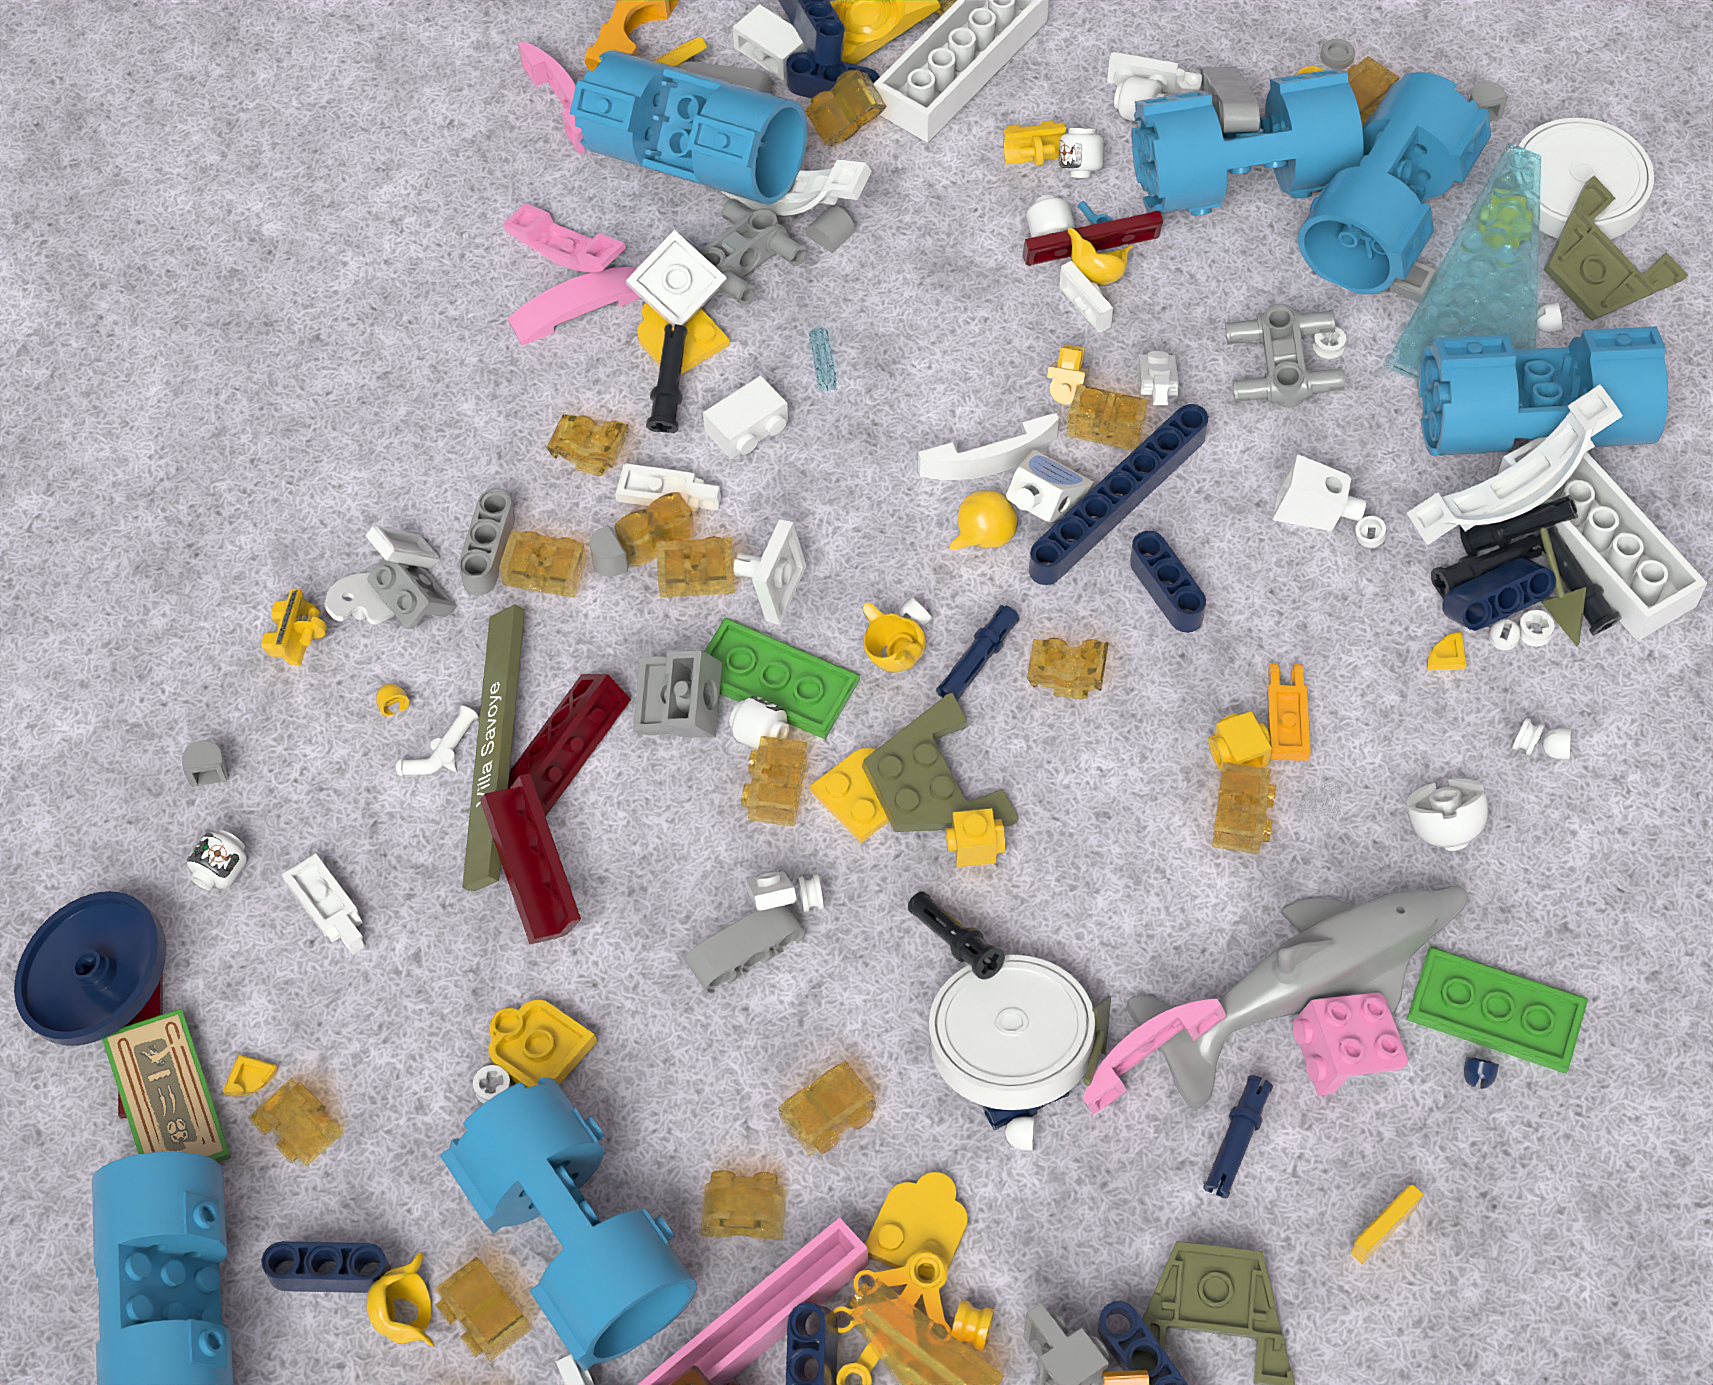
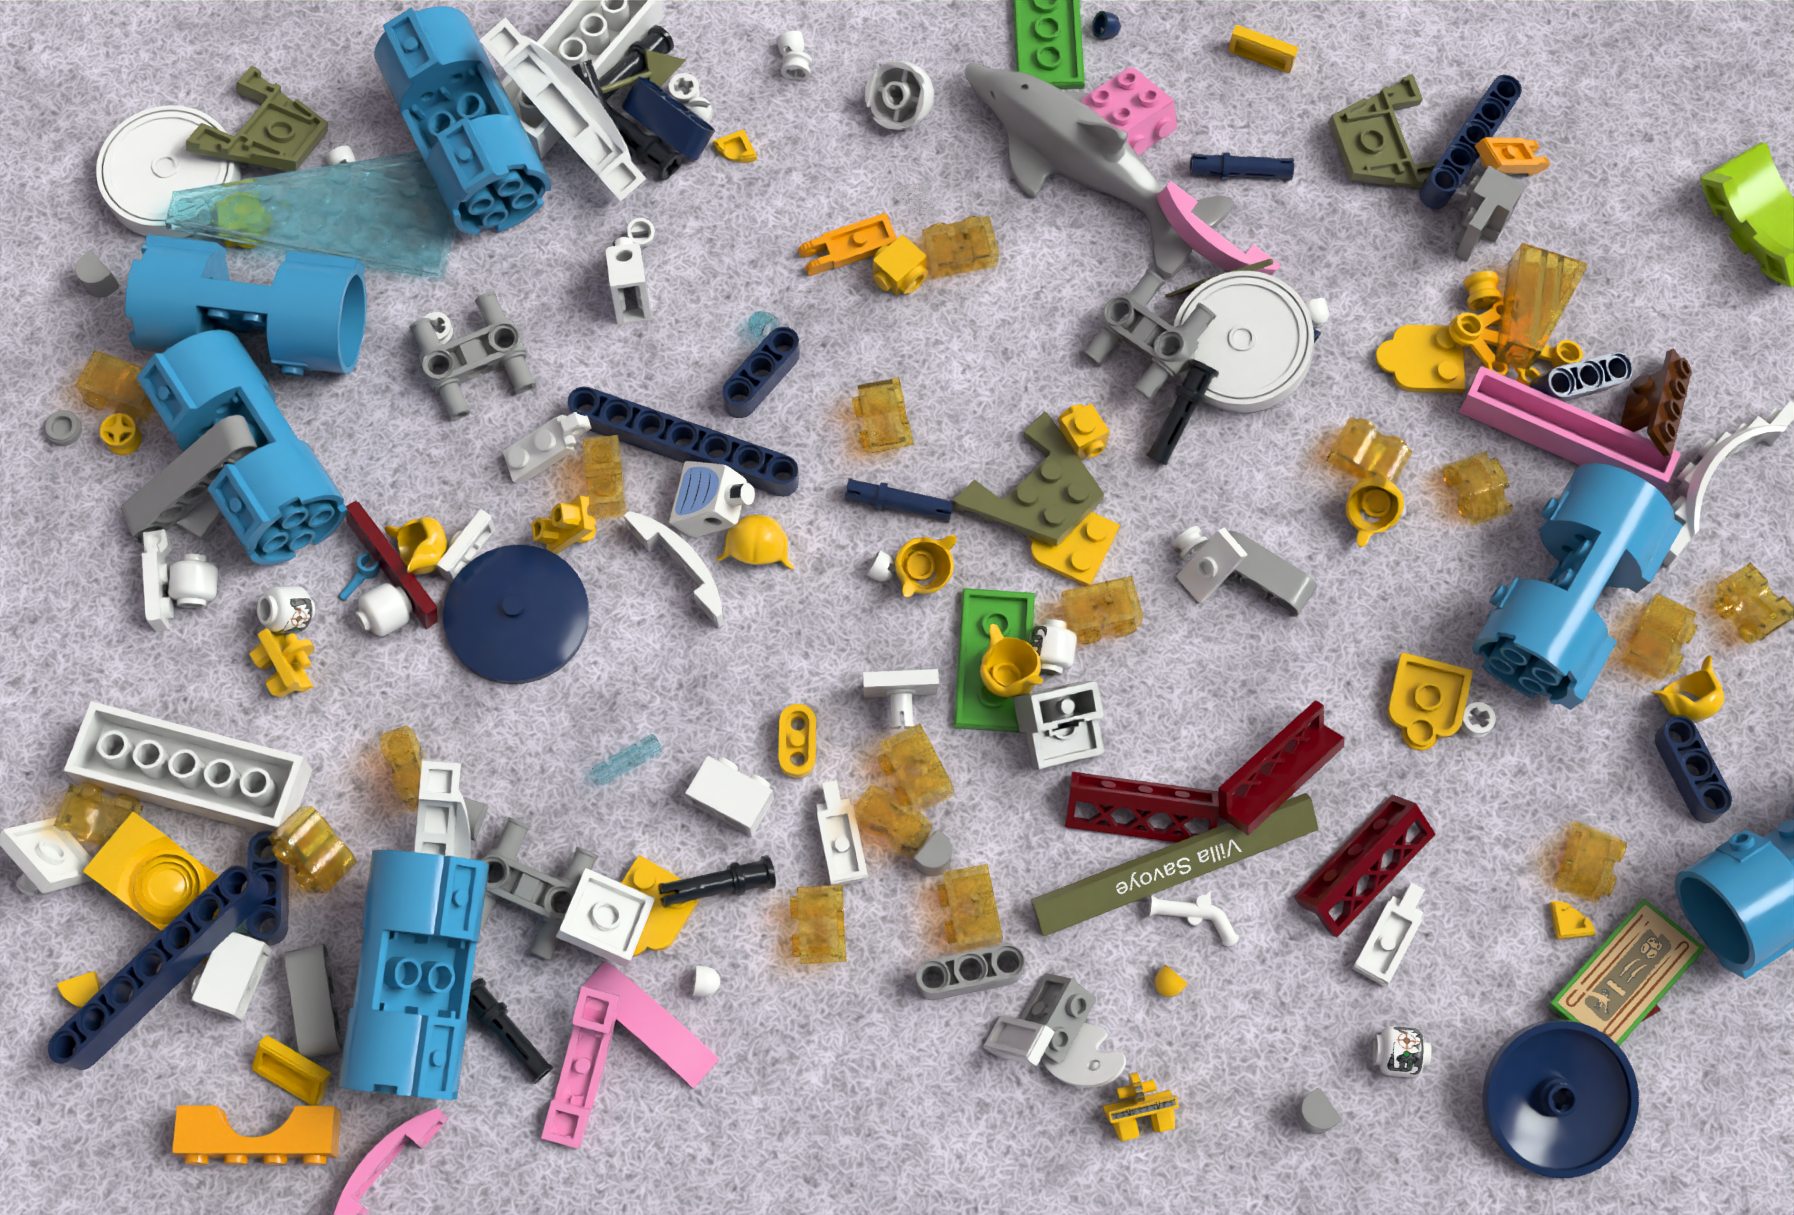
camera: 115 degrees left, 10 degrees up
(412, 904) = (1363, 856): none -> dark red fence
(592, 350) = (706, 981): none -> white hinge
(642, 199) = (536, 1066): none -> black pin
(750, 665) = (1009, 665): none -> yellow hair
(768, 1065) = (1378, 499): none -> yellow hair
(774, 489) = (797, 742): none -> yellow plate
(891, 198) = (405, 758): none -> clear yellow brick
(1003, 321) = (516, 614): none -> dark blue dish
(1056, 934) = (1149, 334): none -> light grey piece
(1227, 600) = (758, 322): none -> clear light blue hinge

